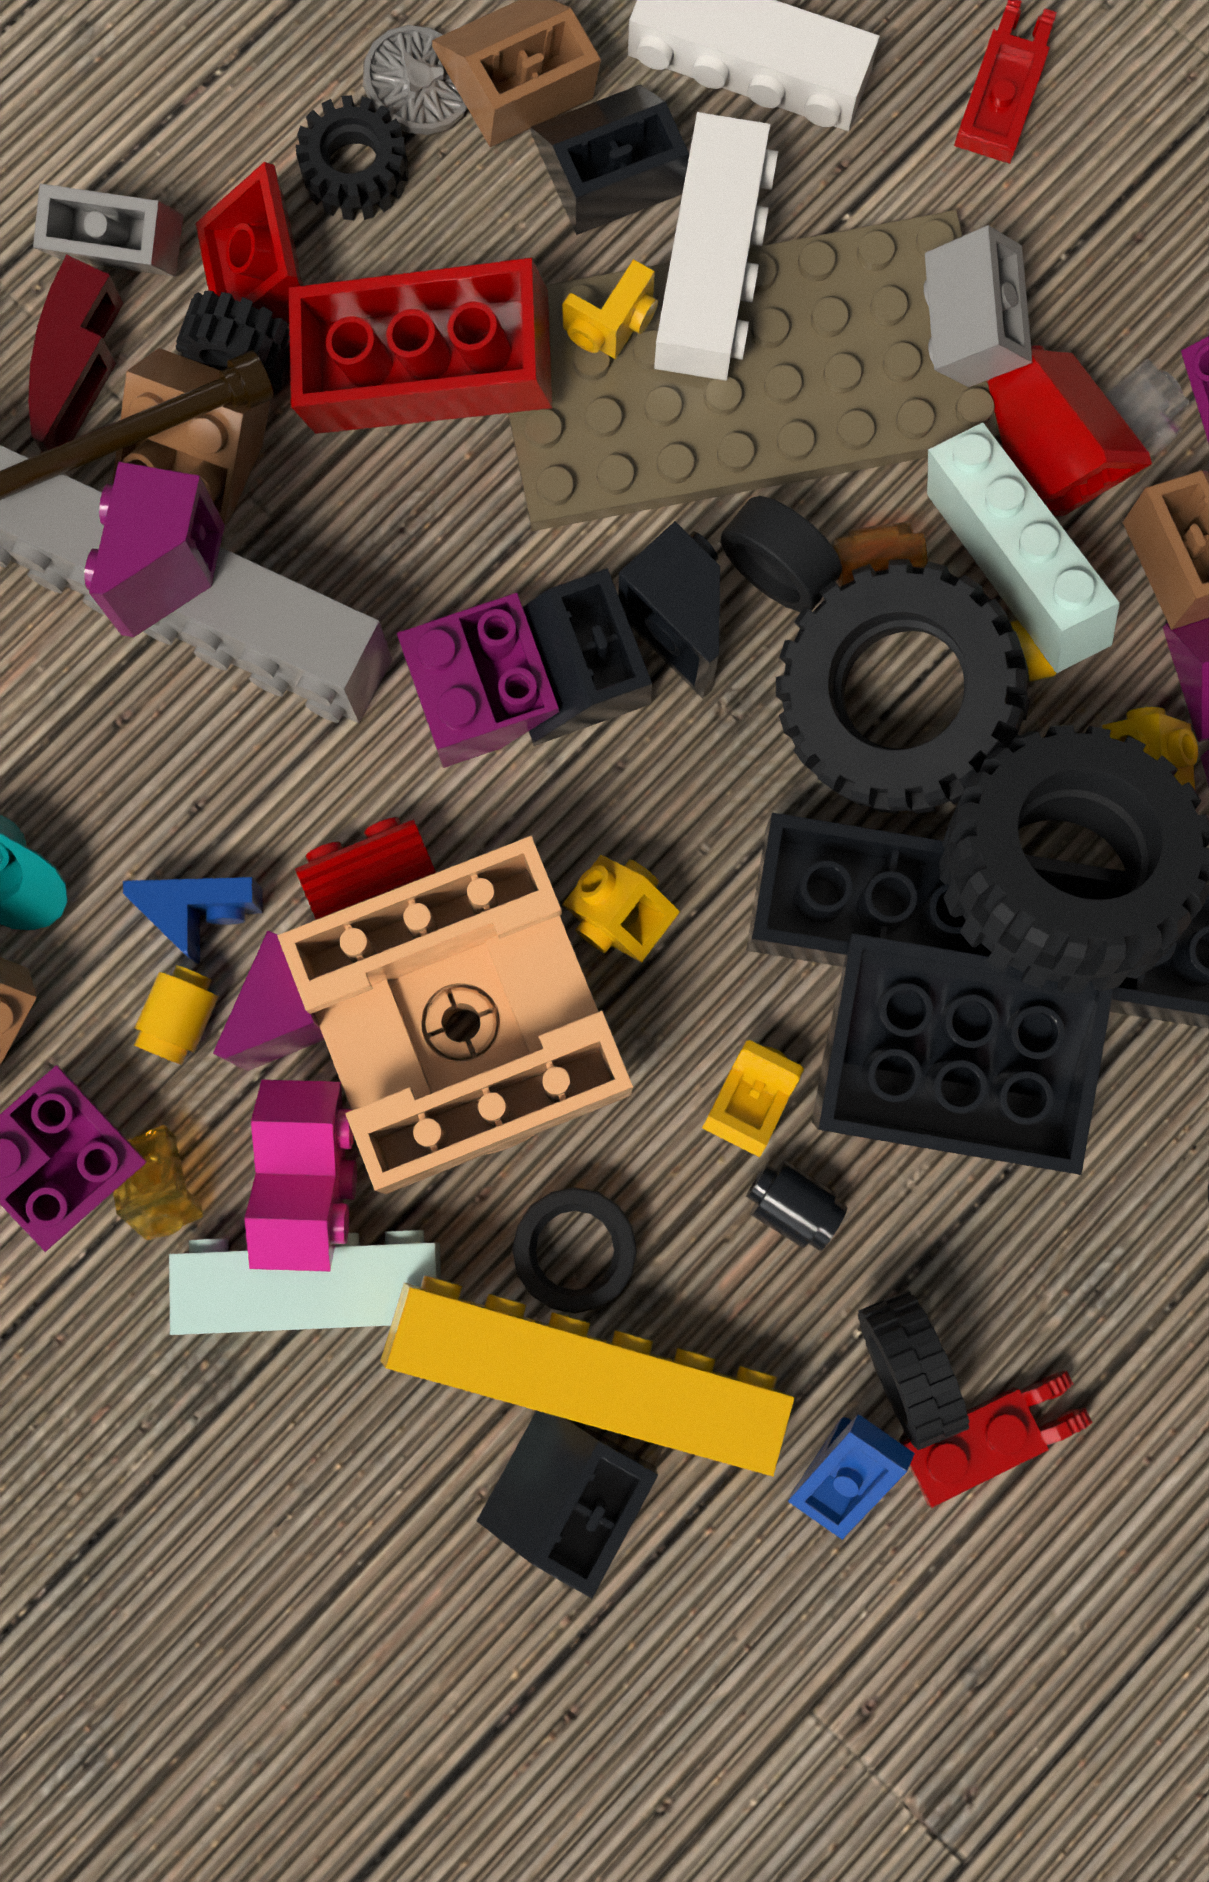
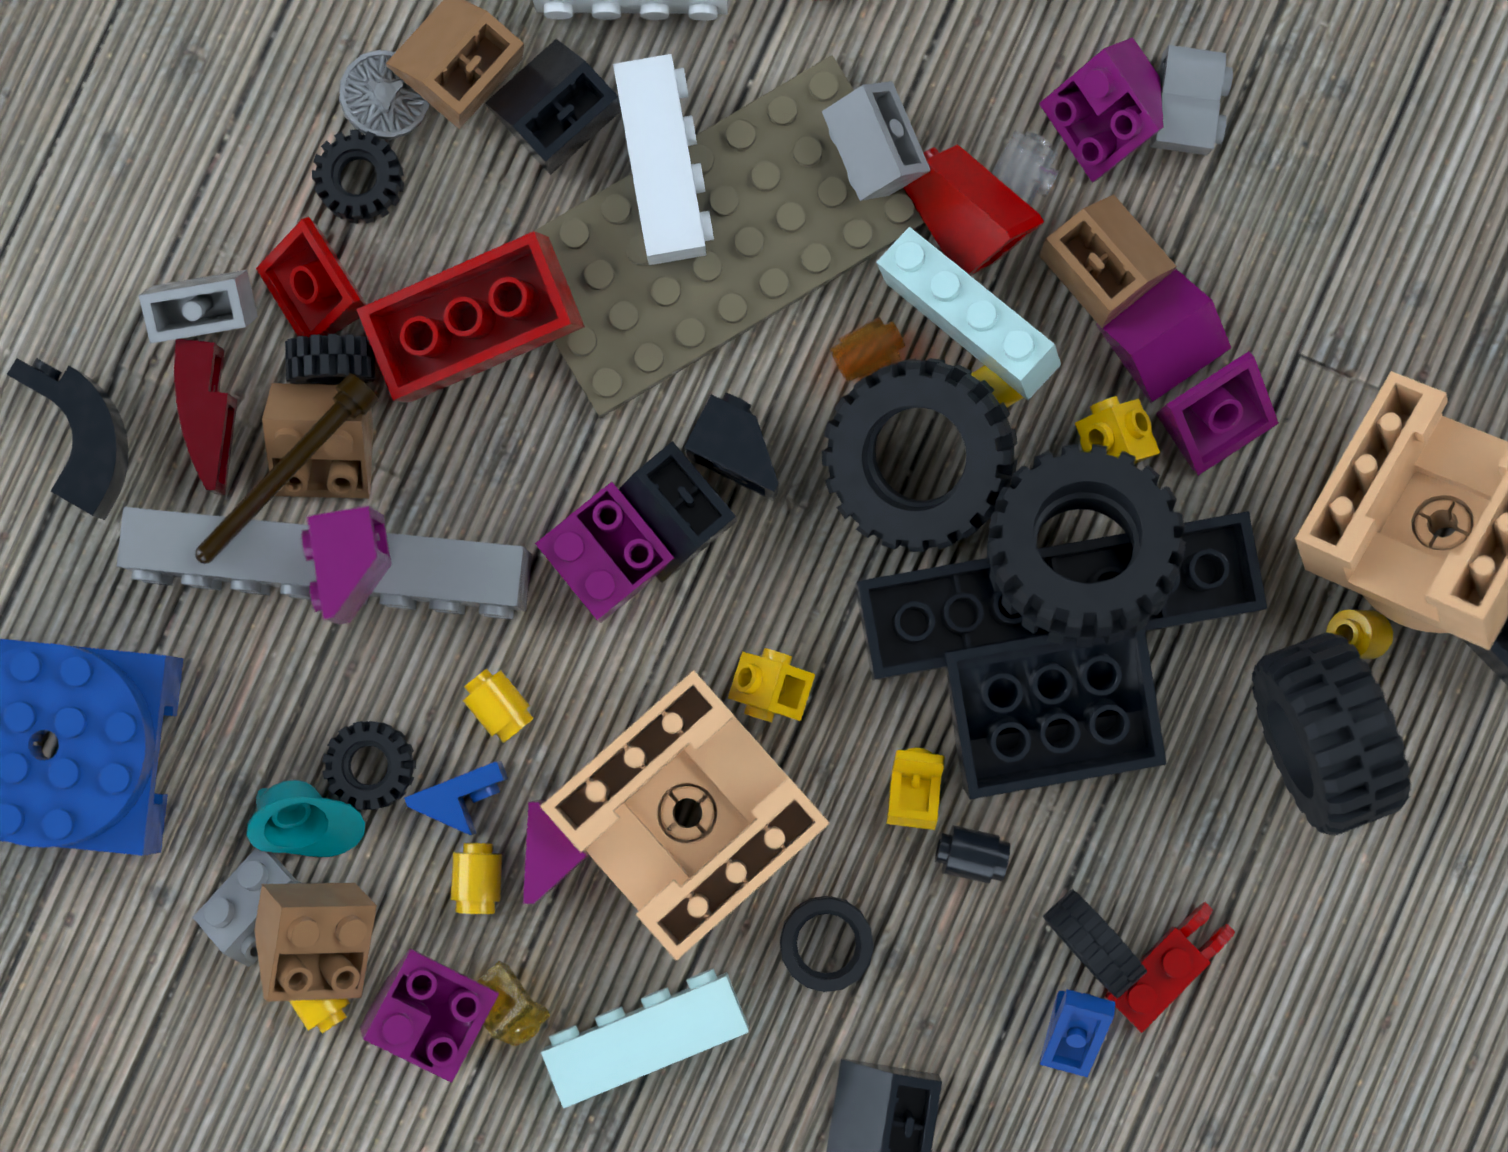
camera: 15 degrees left, 5 degrees up
(80, 801) = (339, 759): none -> black tyre
(281, 815) = (497, 704): none -> yellow brick
(299, 1176) = (614, 964): dark pink brick -> none
(349, 875) = (579, 729): red brick -> none
(587, 1378) = (868, 1032): yellow brick -> none
(625, 311) = (615, 232): yellow bracket -> none
(780, 553) = (794, 379): black tyre -> none

